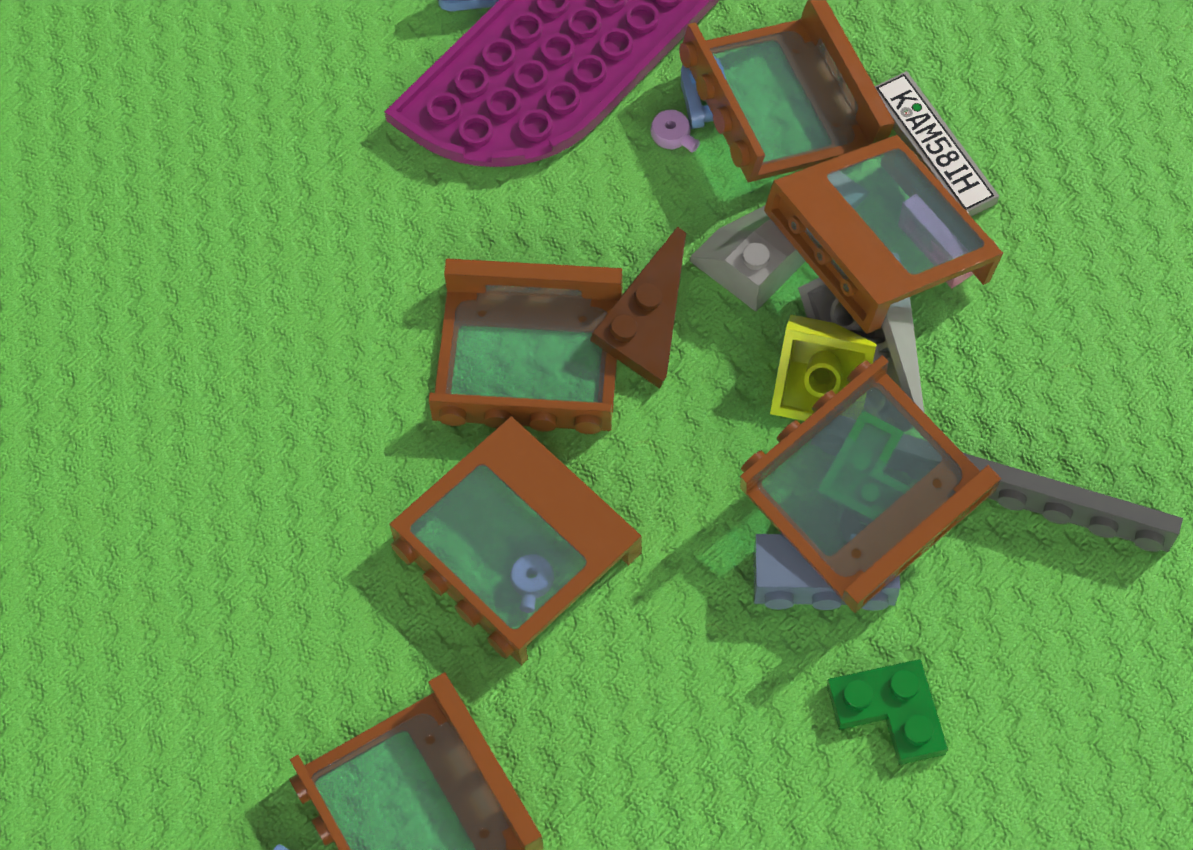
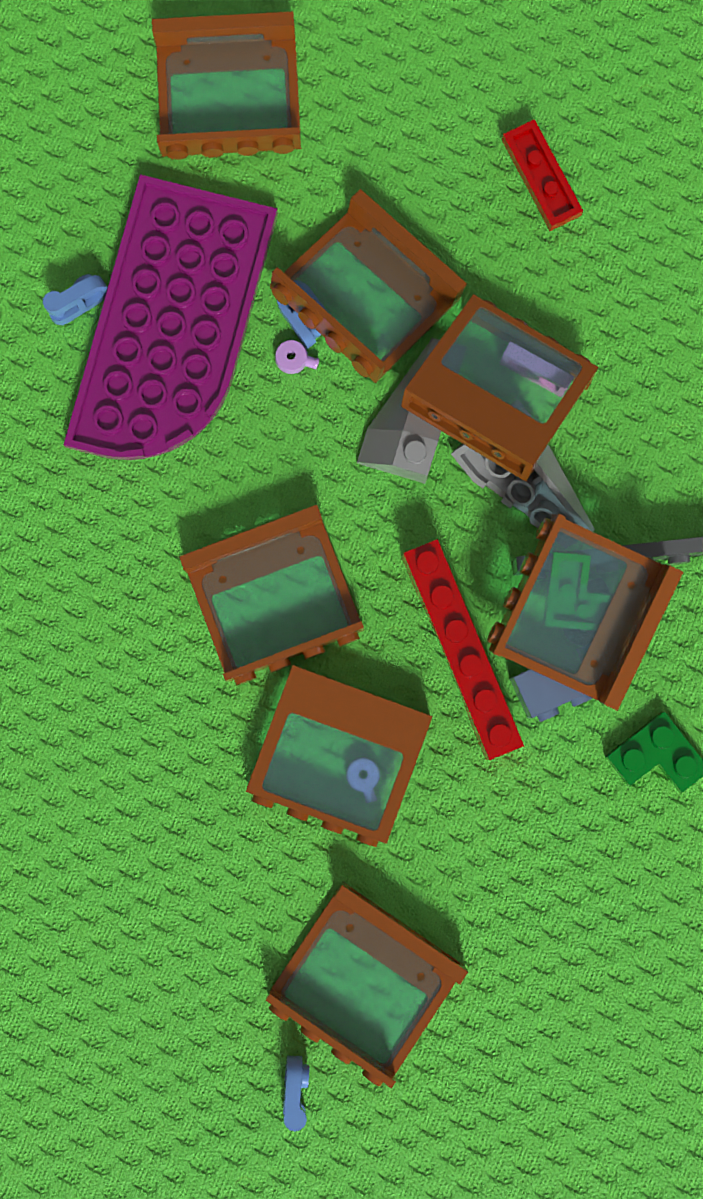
camera: 25 degrees left, 20 degrees up
(642, 320) = (347, 532): reddish brown wing -> none
(711, 491) = (463, 650): none -> red arch
(814, 361) = (499, 518): neon yellow slope -> none
(935, 144) = (499, 282): tile -> none
(1030, 62) = (542, 175): none -> red plate

